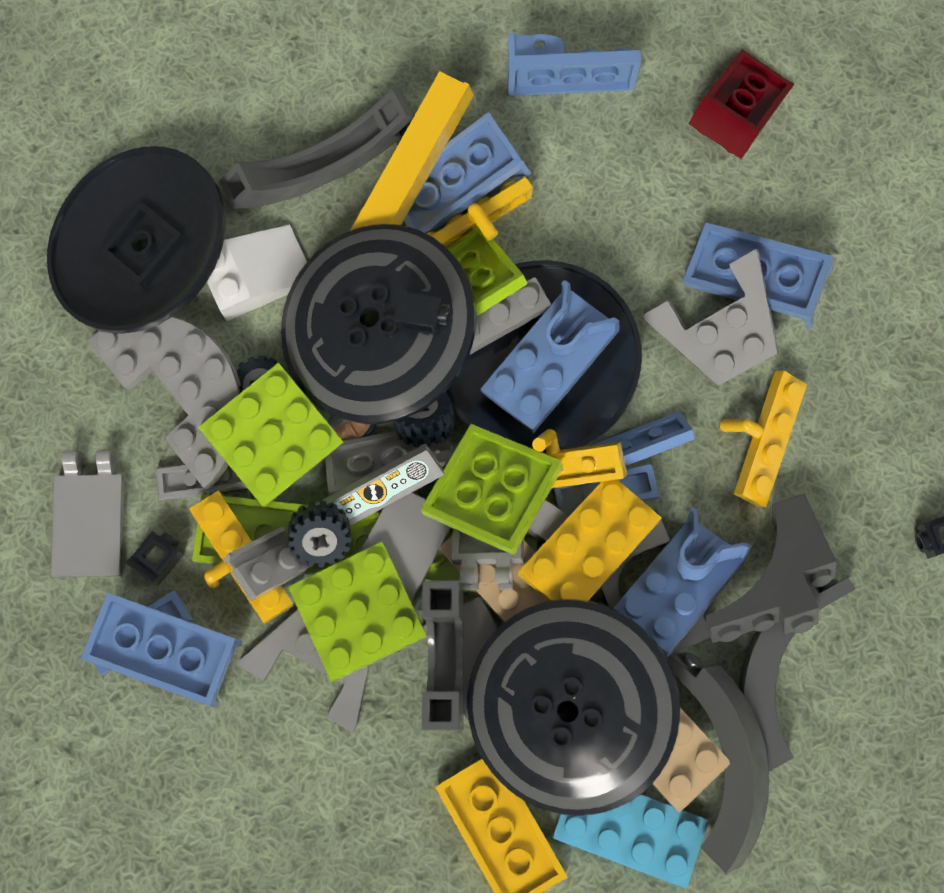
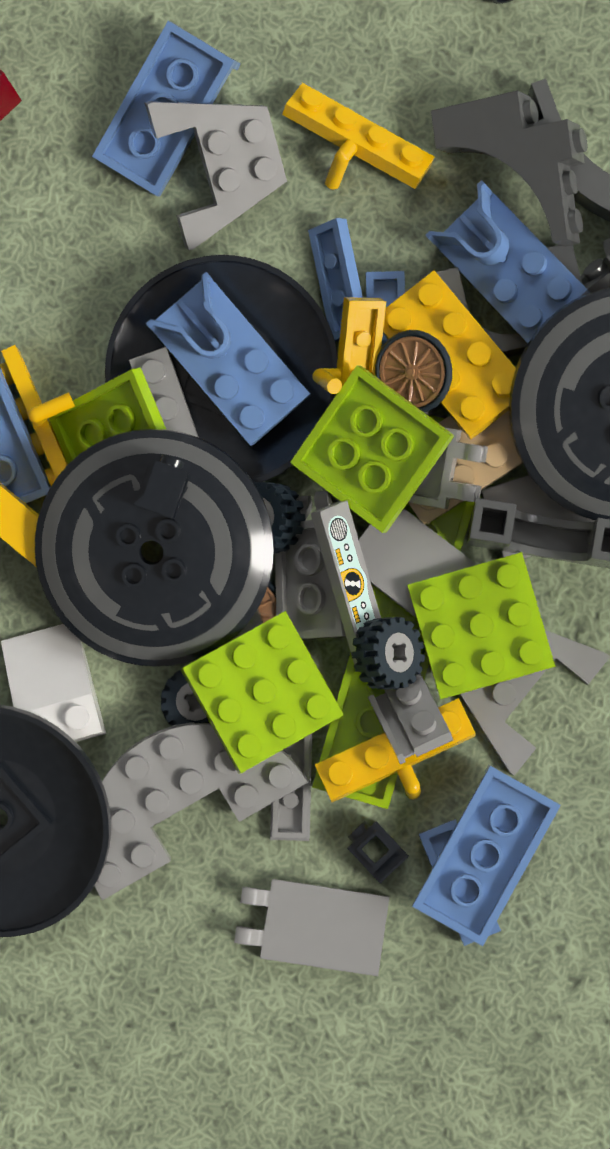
camera: 75 degrees left, 5 degrees up
(569, 514) = (415, 368): none -> medium nougat wheel

